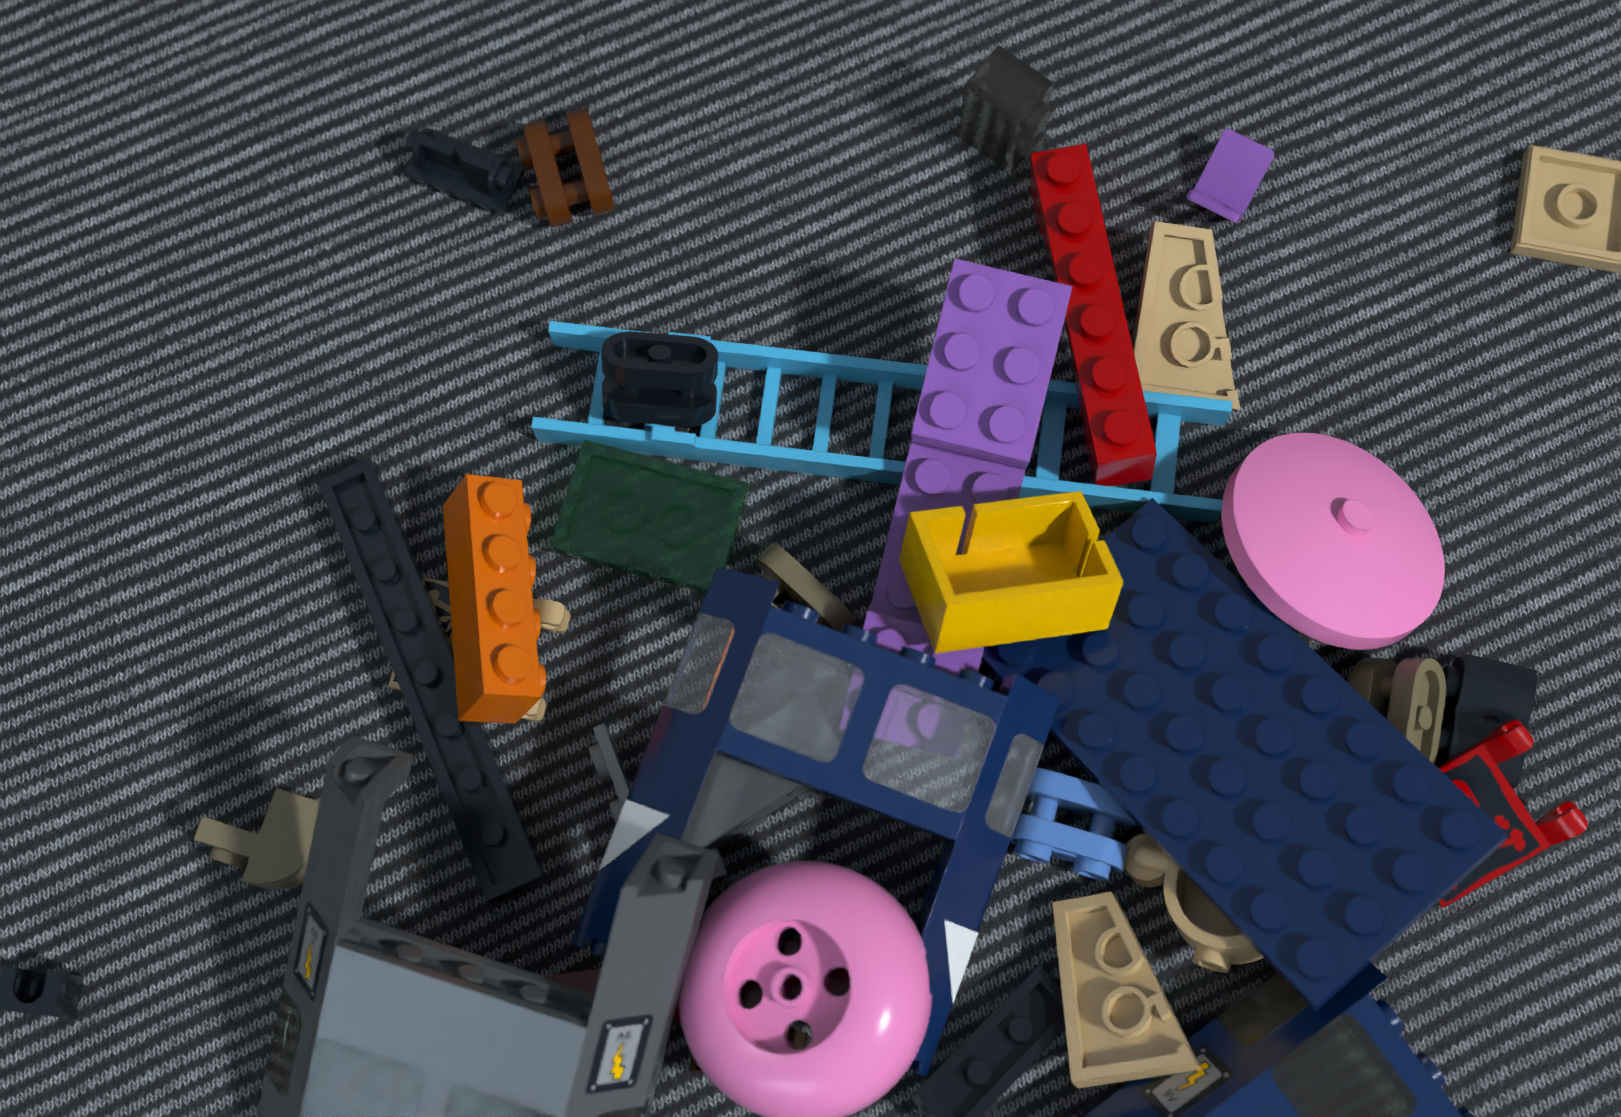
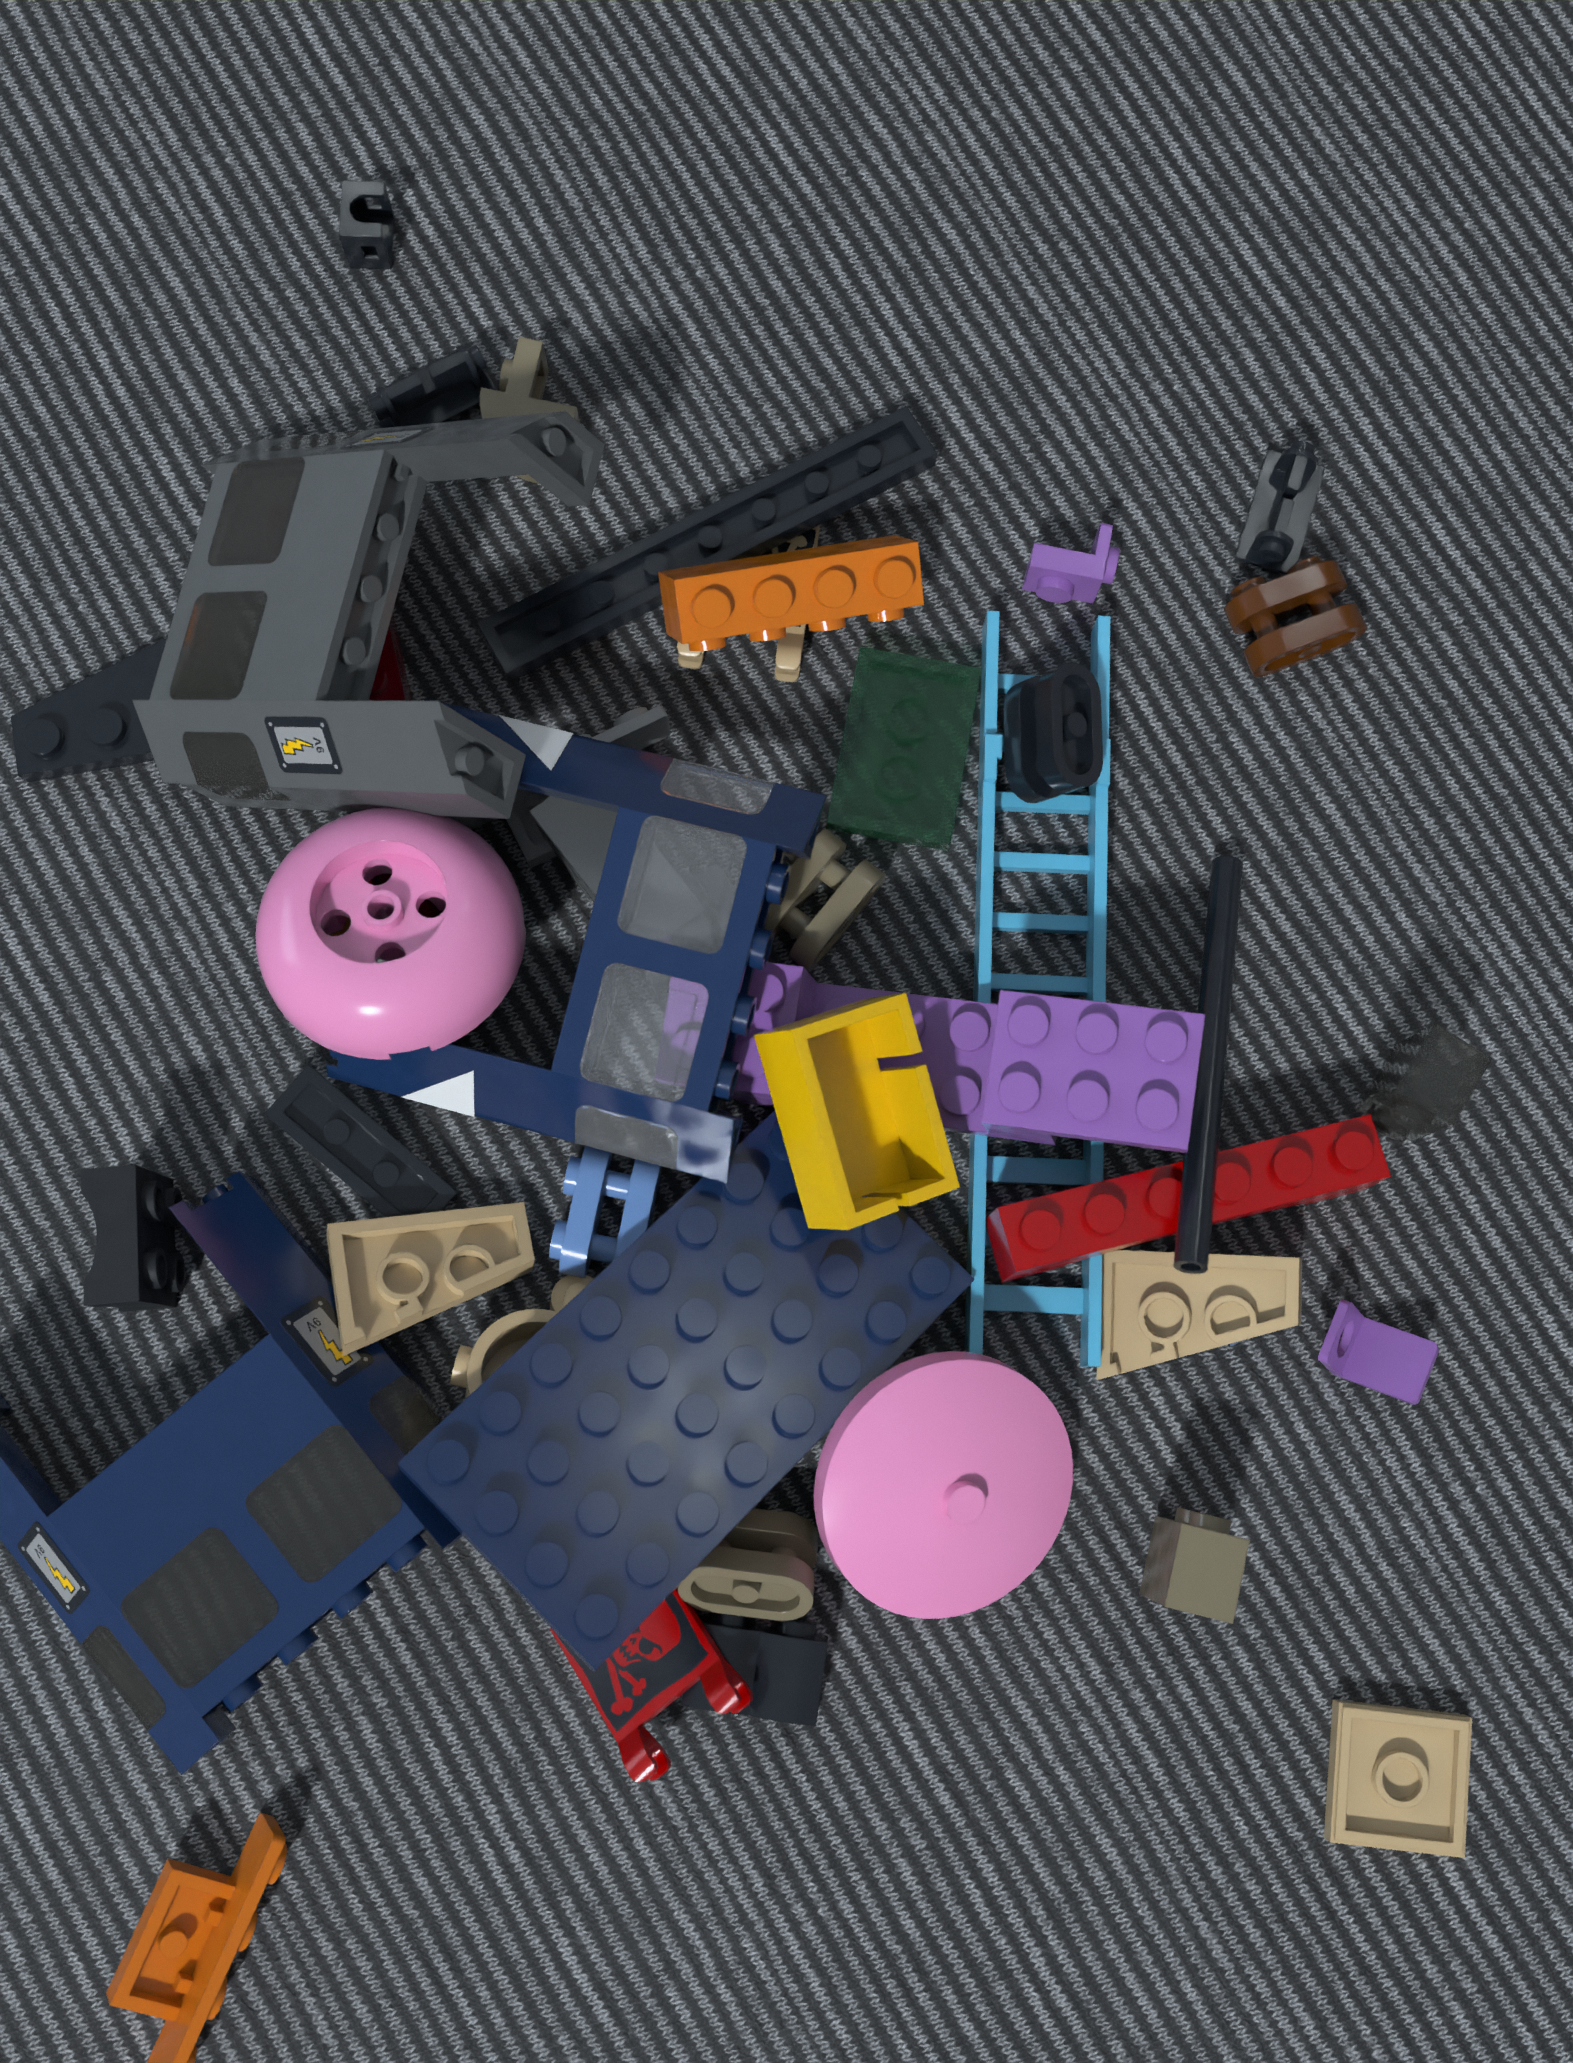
camera: 75 degrees right, 5 degrees up
(231, 939) = (434, 392): none -> black hinge
(503, 354) = (1069, 574): none -> medium lavender bracket
(936, 272) = (1214, 1001): none -> black piece
(1407, 340) = (1195, 1565): none -> dark tan brick

